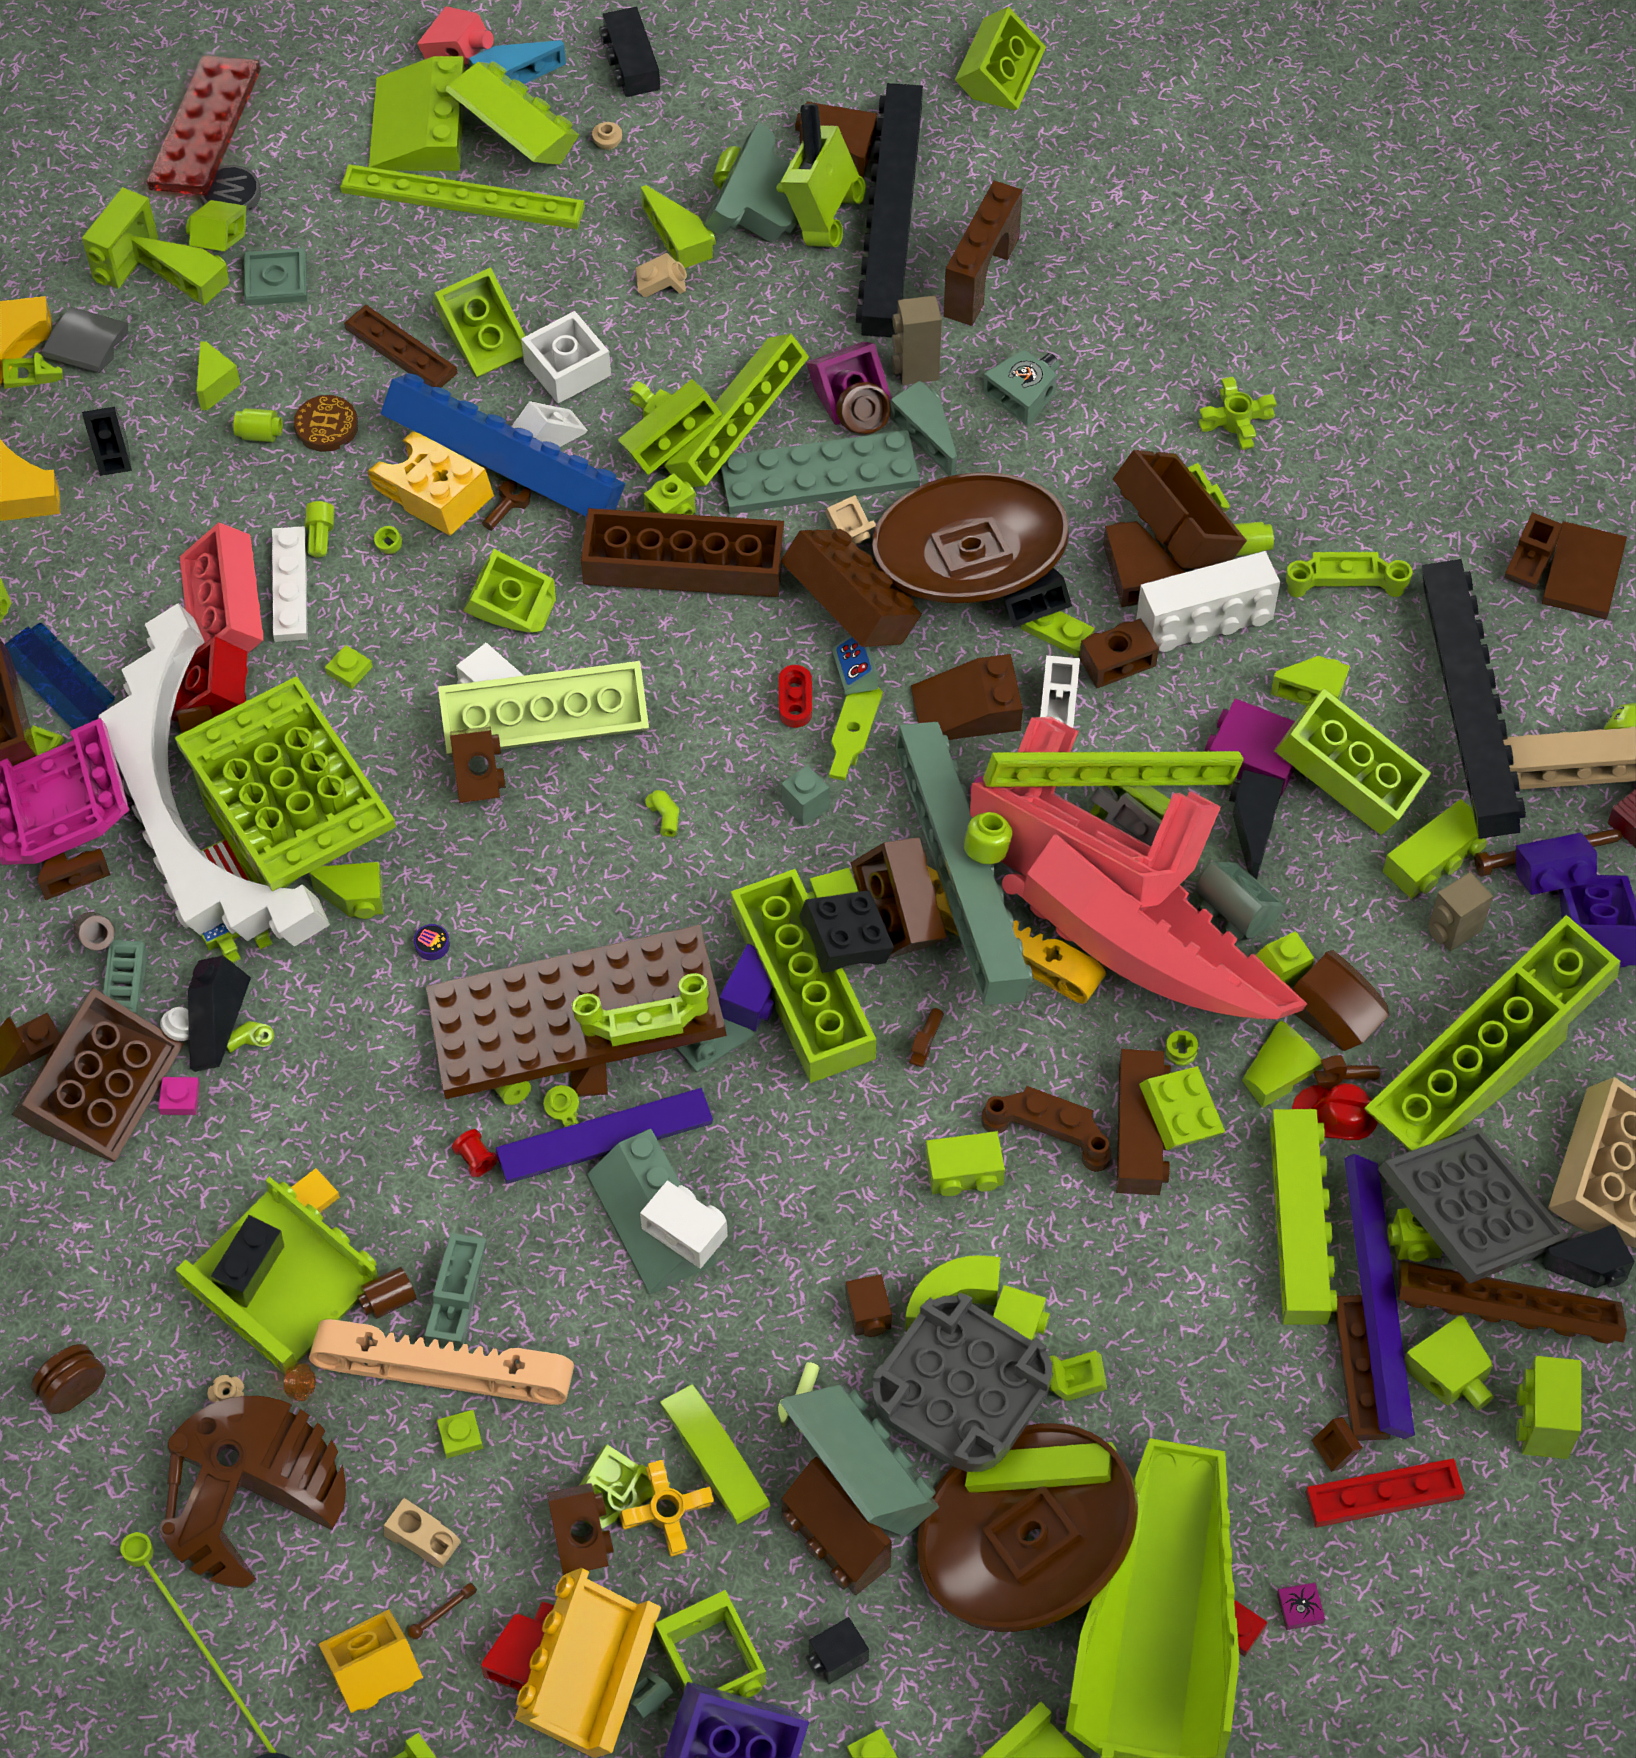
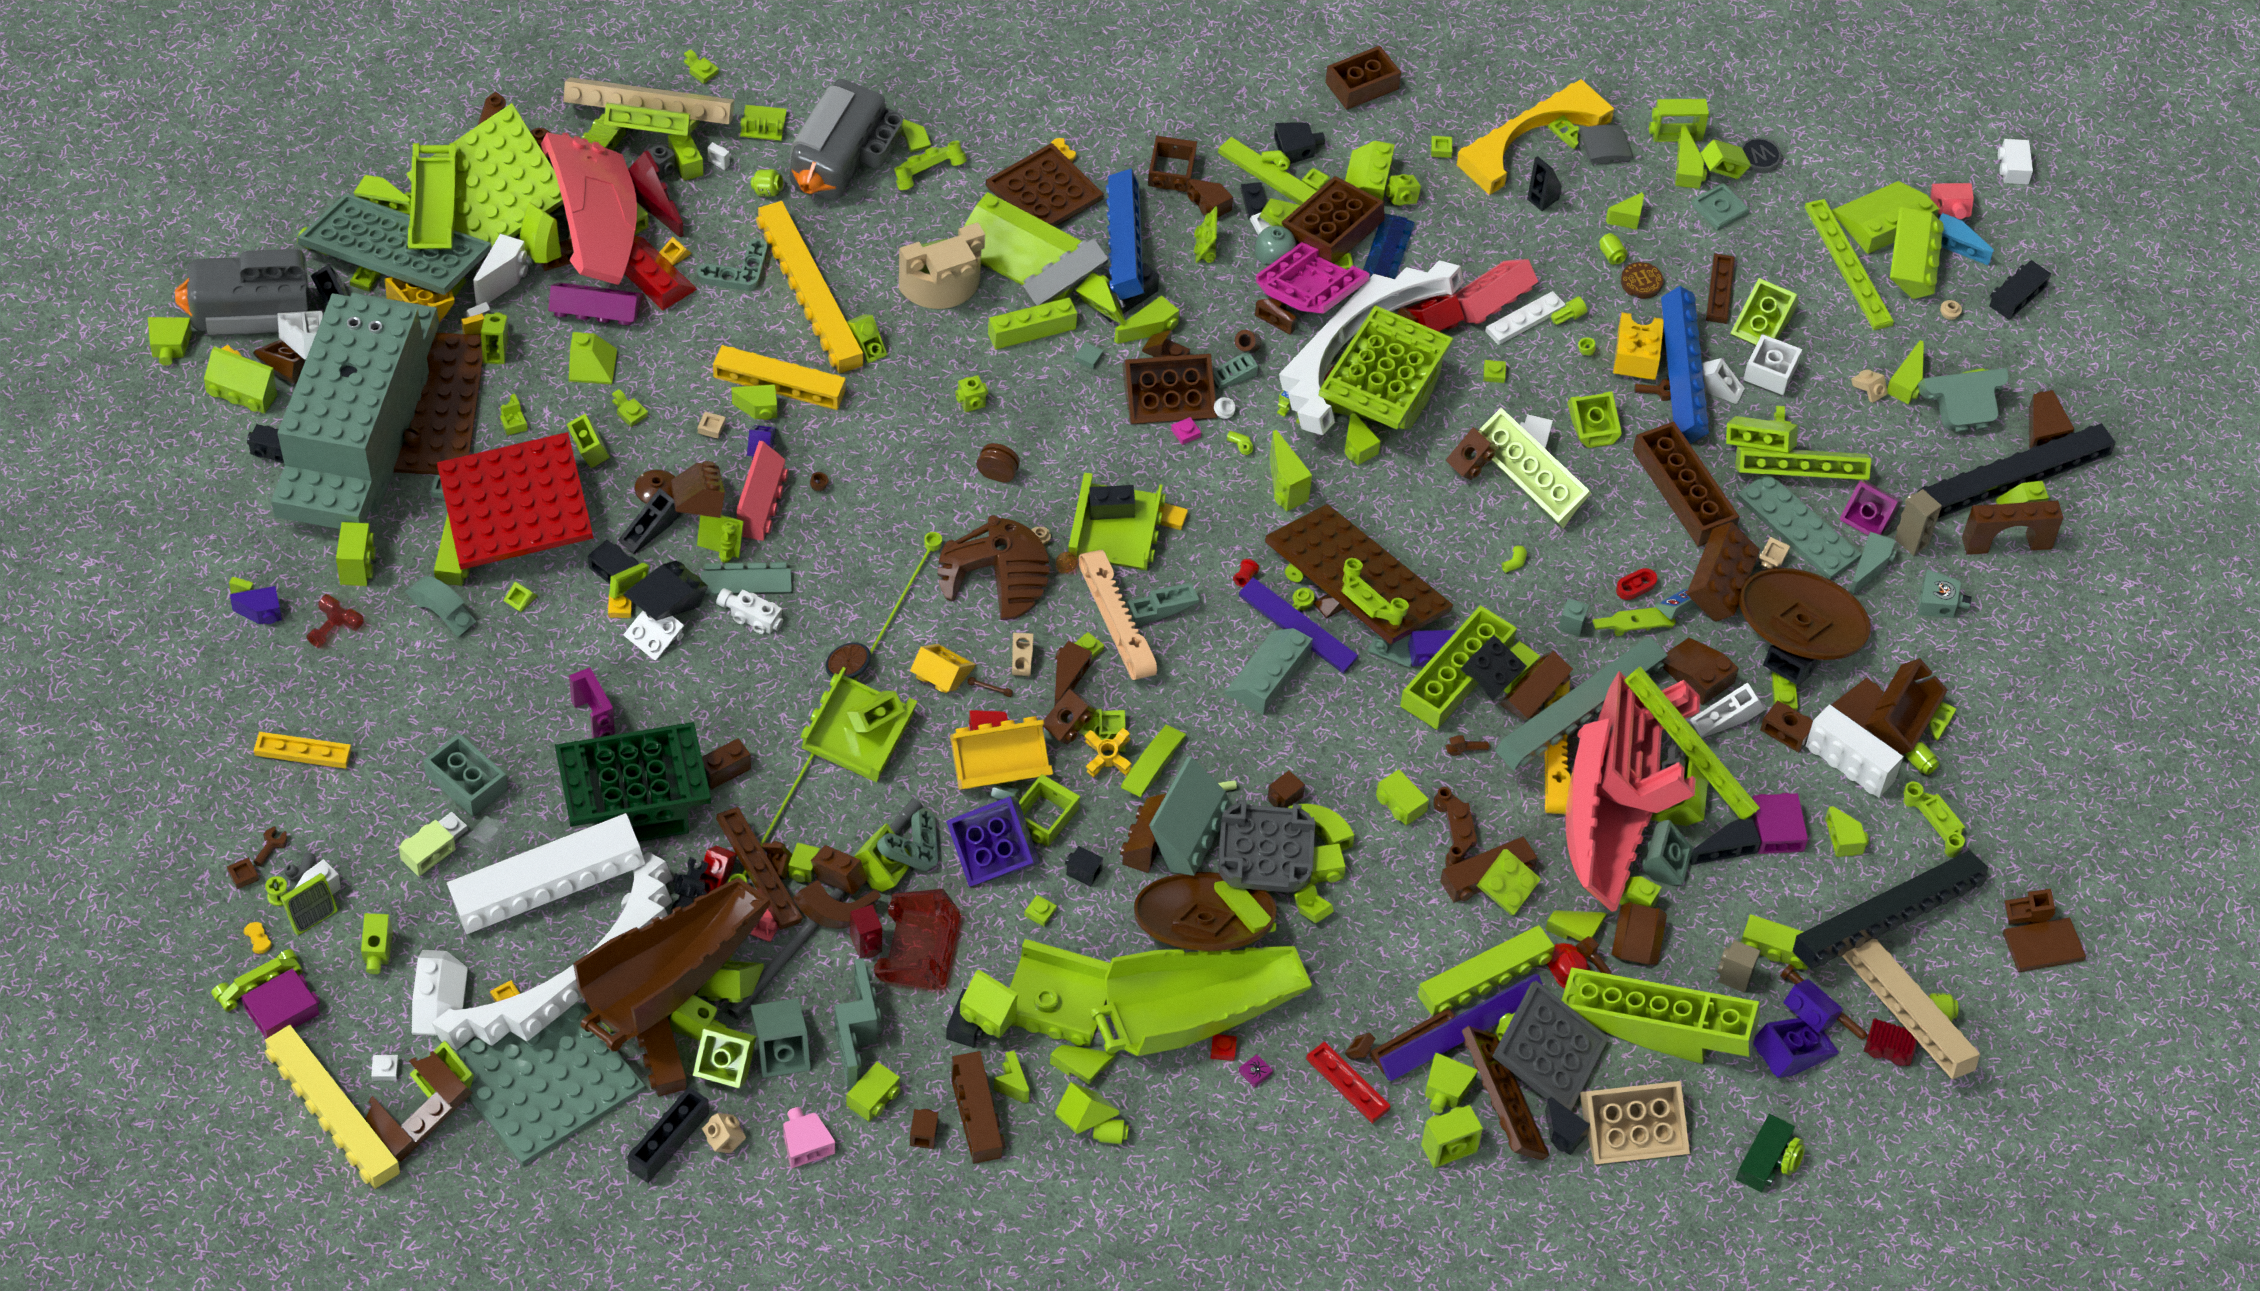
camera: 55 degrees right, 5 degrees down
(204, 125) = (1794, 118): clear red plate -> none
(213, 1008) = (1243, 415): black slope -> none
(350, 1005) = (1289, 474): none -> lime slope
(386, 1293) = (1140, 574): reddish brown brick -> none
(431, 942) = (1356, 494): tile -> none
(490, 1486) = (1071, 666): none -> reddish brown slope
(670, 497) = (1717, 461): lime brick -> none
(684, 1223) = (1263, 674): white brick -> none
(821, 180) = (1991, 418): lime piece -> none
(863, 408) = (1856, 524): reddish brown piece -> none
(938, 223) = (2025, 493): none -> lime slope
(987, 838) = (1595, 699): lime head -> none
(1001, 60) = (2175, 476): lime slope -> none
(1173, 1054) = (1552, 866): lime bush -> none
(1237, 413) = (2009, 713): lime pin -> none
(1352, 762) = (1797, 867): lime brick -> none

